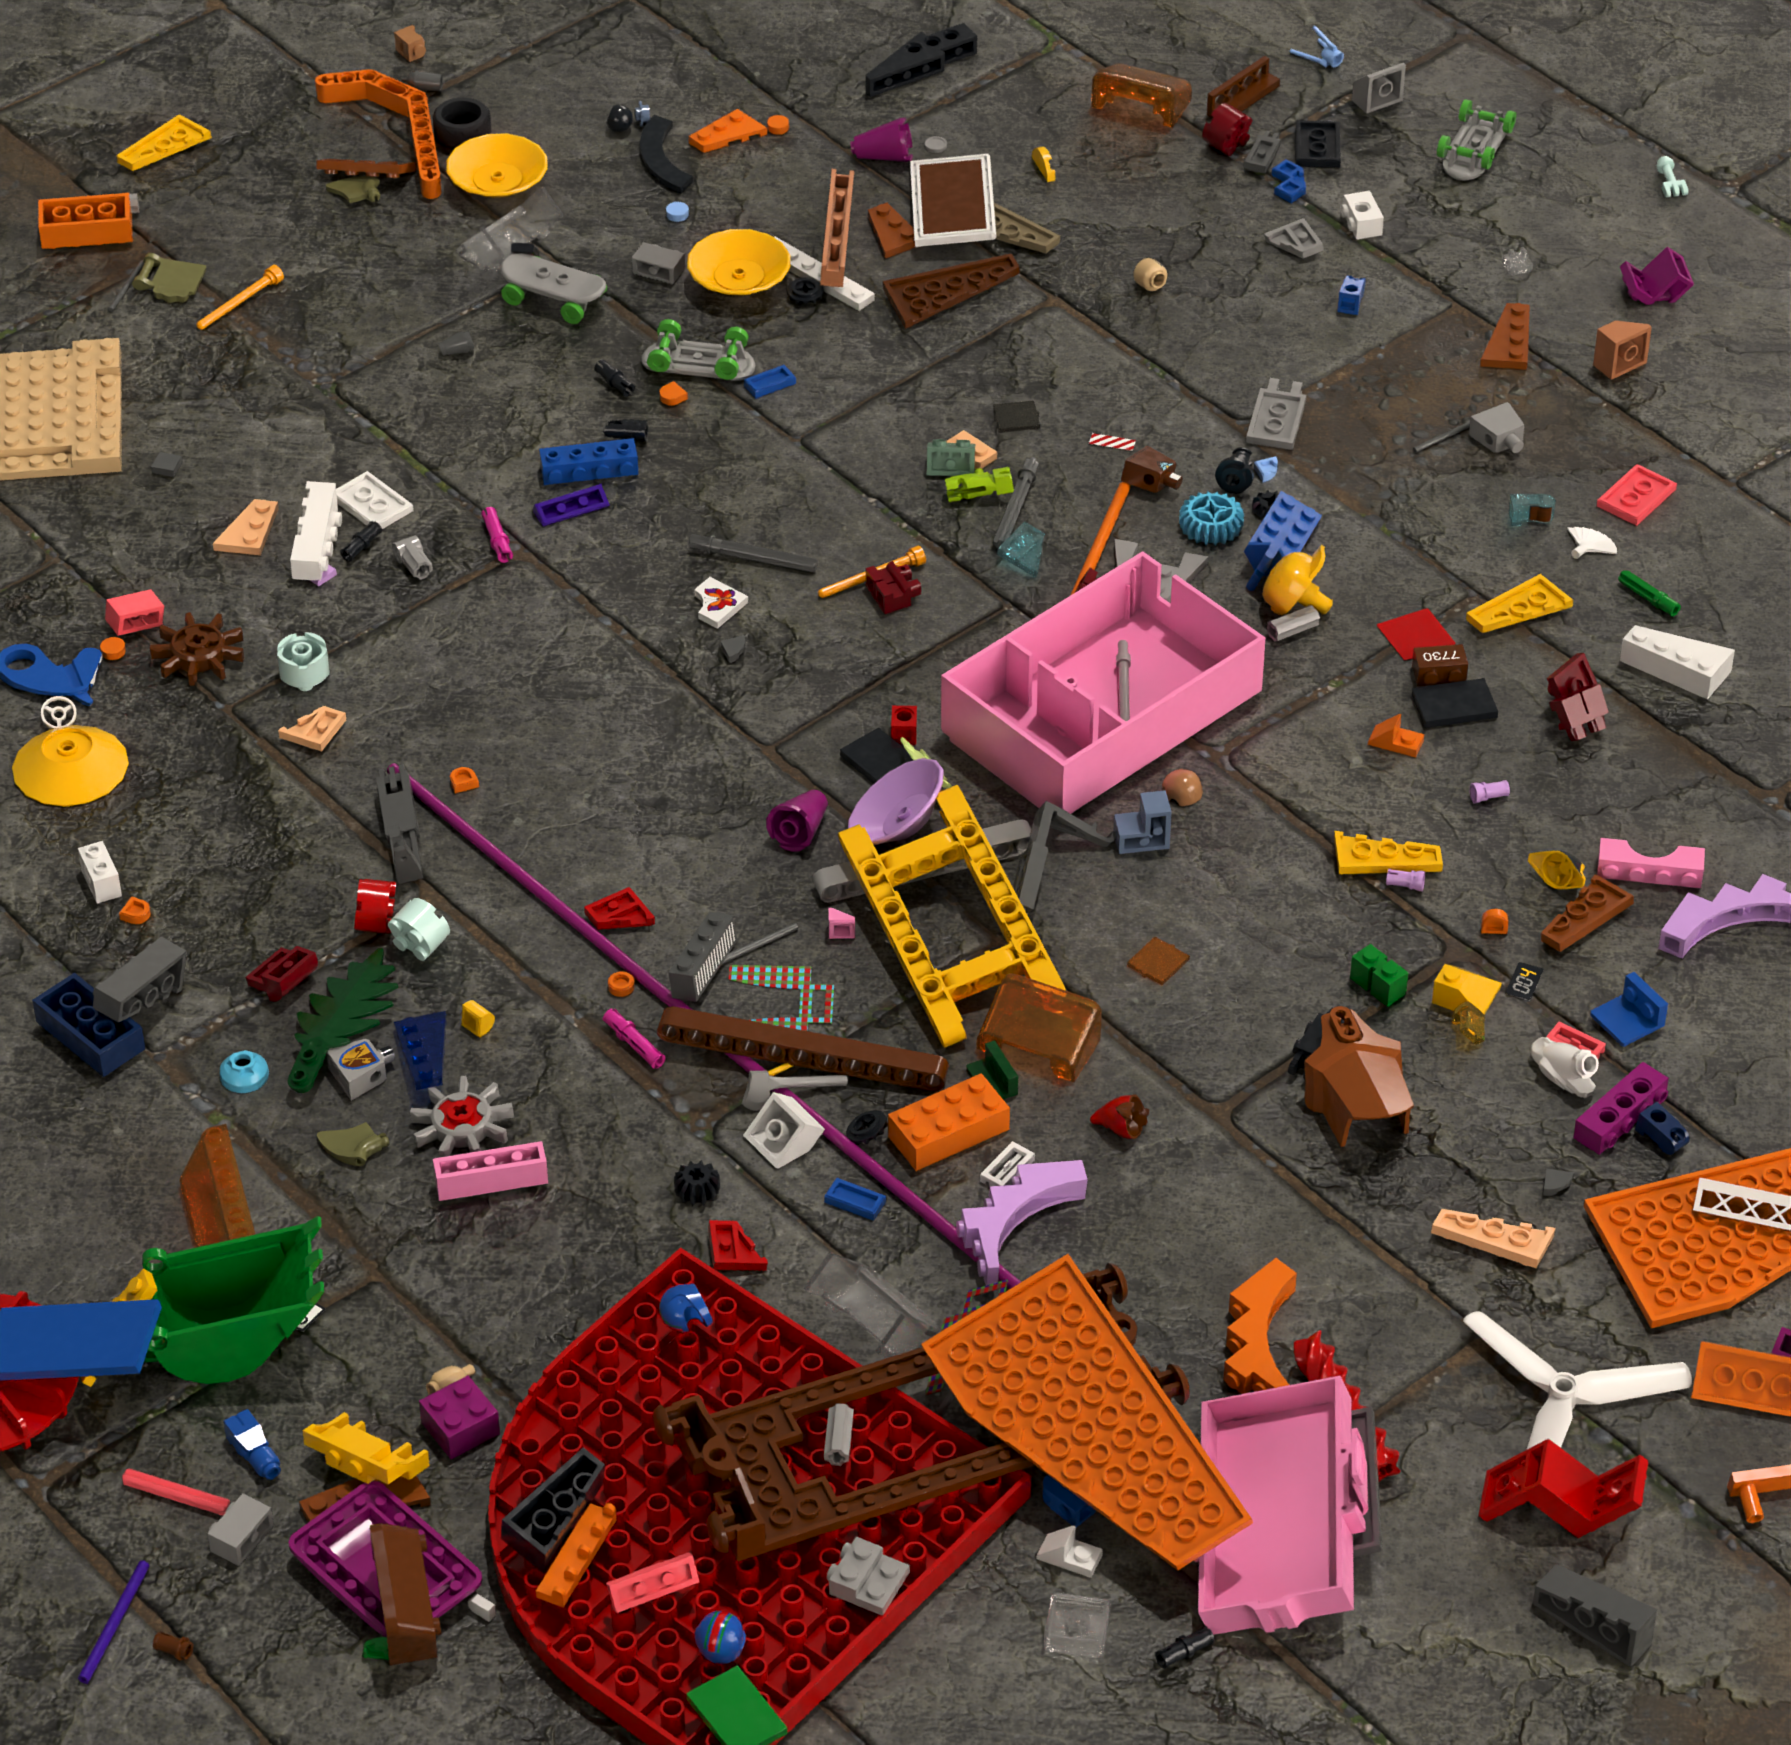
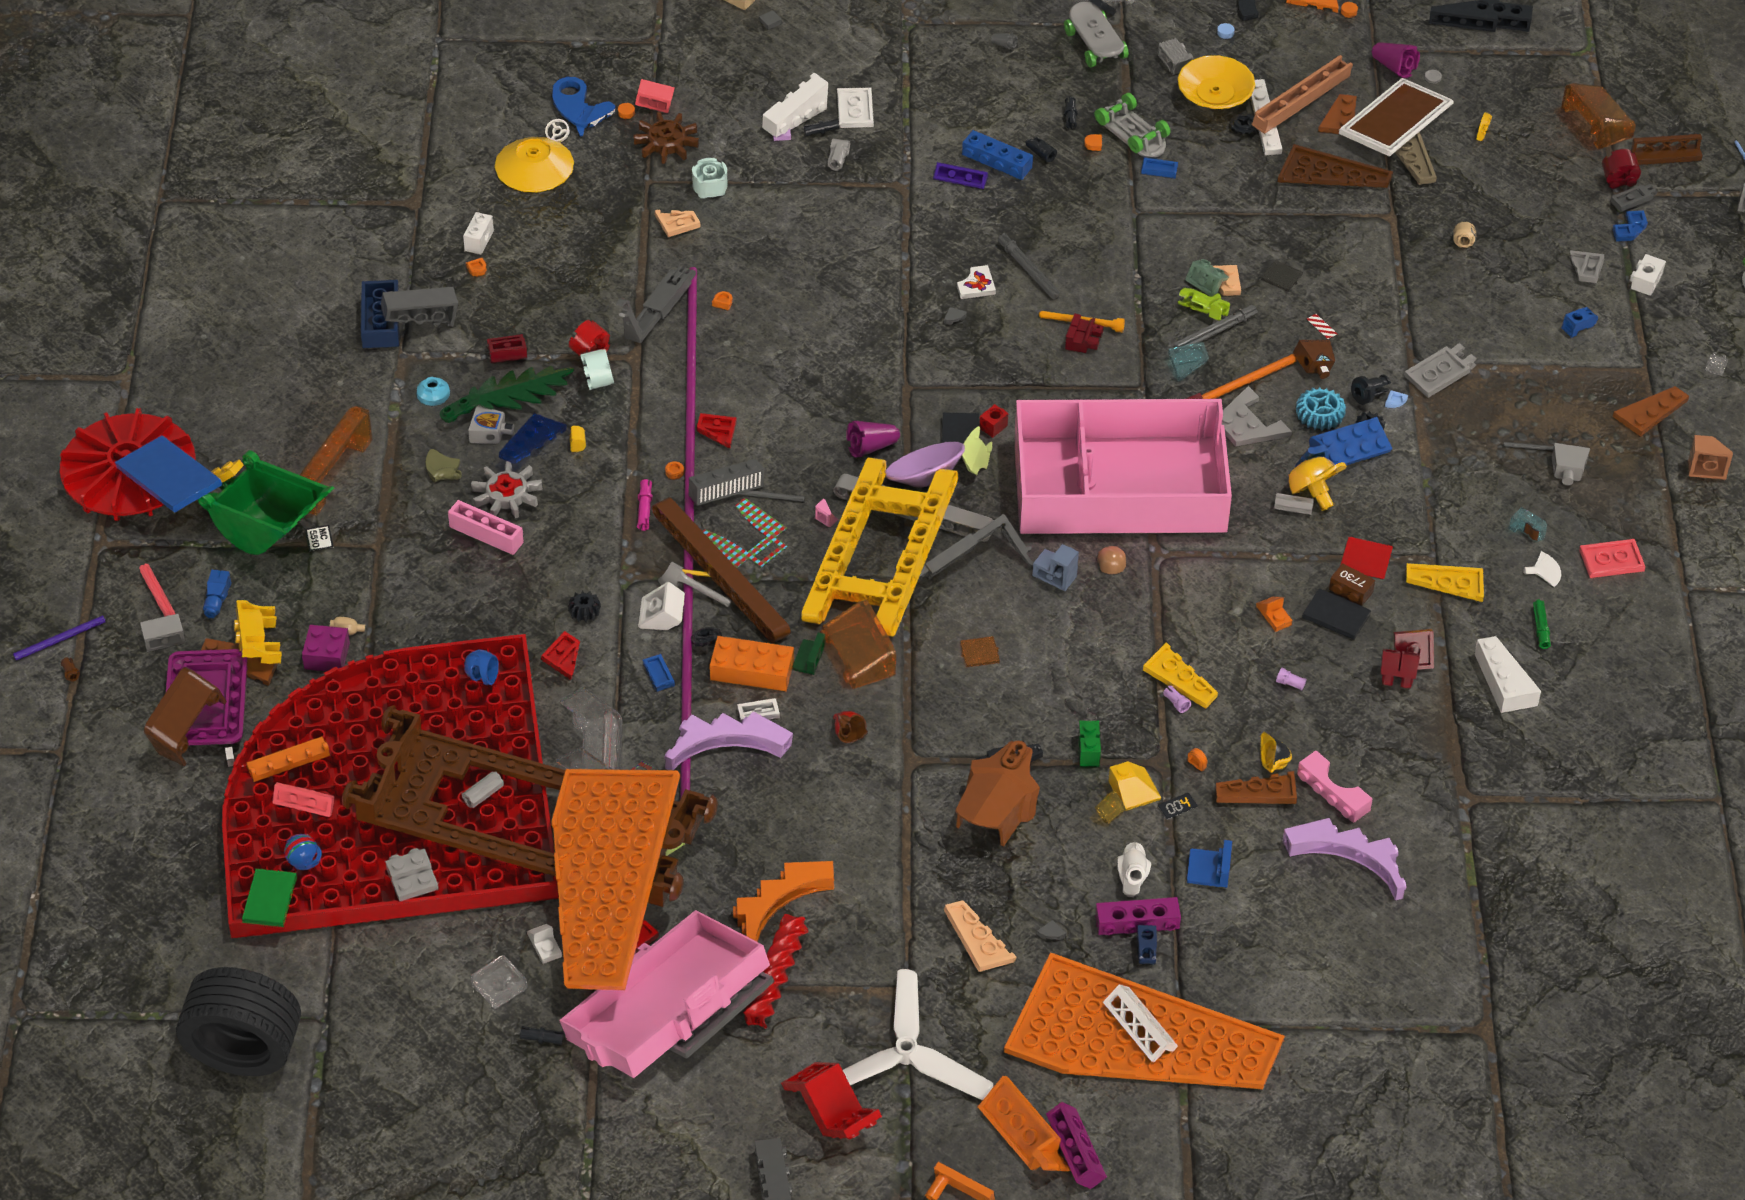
camera: 40 degrees right, 5 degrees up
(249, 530) = (773, 84): light nougat wing -> none
(498, 540) = (896, 172): dark pink pin -> none
(552, 1511) = (298, 725): black wedge -> none
(1123, 662) = (1158, 463): light grey bar -> none
(1317, 143) = (1678, 212): black tile -> none
(1577, 1038) = (1158, 876): coral tile -> none

